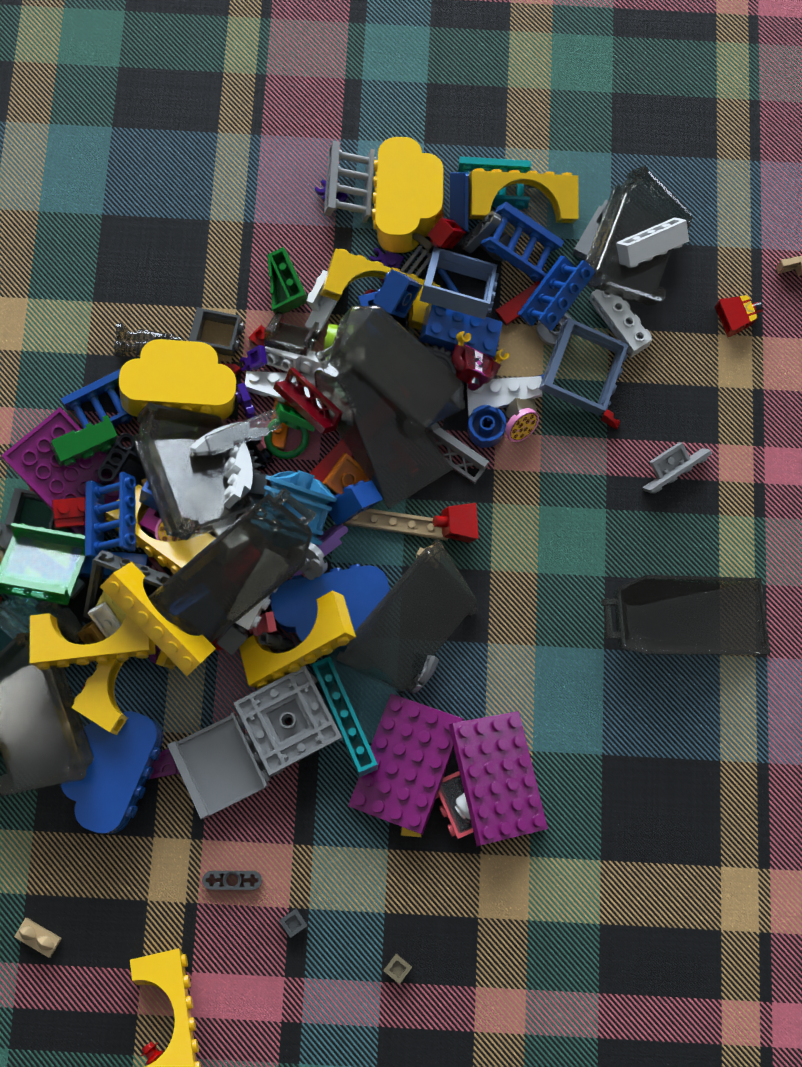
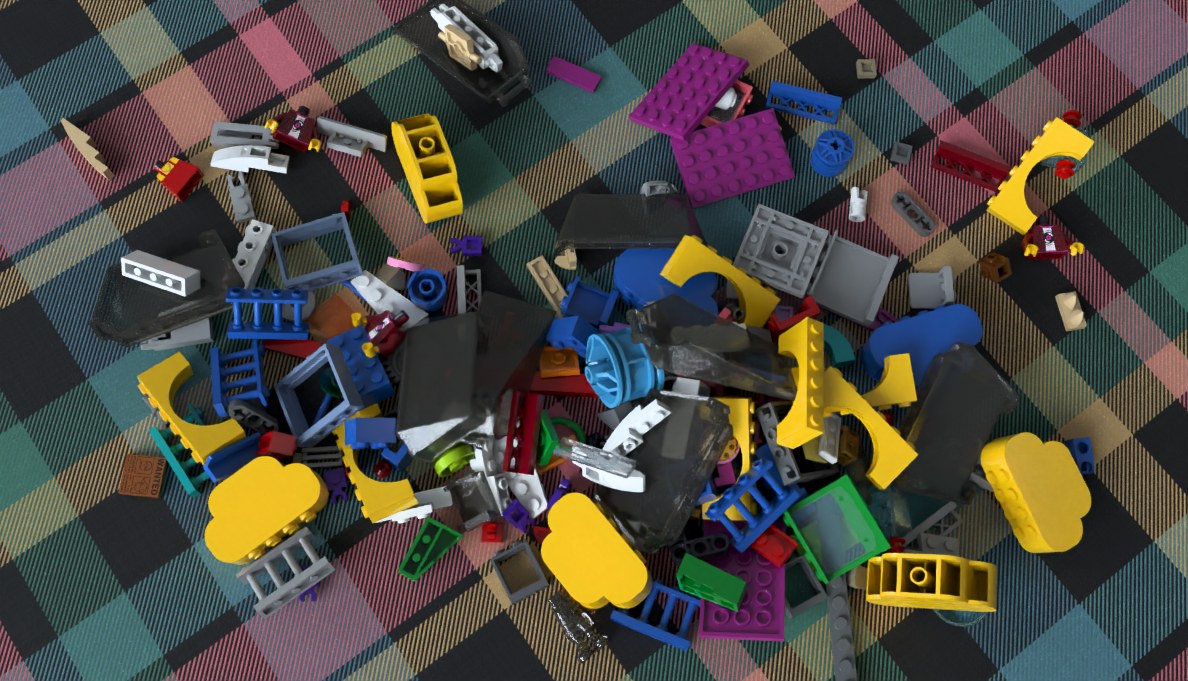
camera: 130 degrees left, 5 degrees down
(108, 973) = (1048, 242): none -> torso
(125, 902) = (995, 267): none -> reddish brown brick
(156, 829) = (931, 289): none -> light grey bracket
(190, 704) = (837, 348): none -> teal arch
(221, 683) = (808, 309): none -> red panel
(234, 980) = (956, 155): none -> dark red fence
(240, 687) = (783, 312): none -> lavender tile
(275, 834) = (857, 205): none -> white hinge
(340, 841) = (832, 153): none -> blue wheel
(344, 717) = (743, 212): teal brick -> none
(375, 539) = (588, 302): none -> blue panel
(416, 882) = (801, 96): none -> blue fence
(459, 522) = (523, 253): red torso -> none
(501, 488) = (470, 245): none -> dark purple plate
(502, 141) = (143, 476): none -> dark orange tile
(521, 345) = (332, 317): none -> clear orange plate
(594, 496) = (428, 166): none -> yellow brick
(597, 697) = (573, 74): none -> magenta tile
(683, 349) = (241, 199): none -> light grey hinge
(689, 611) = (460, 46): none -> tan plate
(698, 627) = (482, 45): none -> white hinge
(712, 376) = (249, 156): none -> white slope
(712, 426) = (295, 129): none -> torso
(741, 385) = (235, 134): none -> light grey hinge

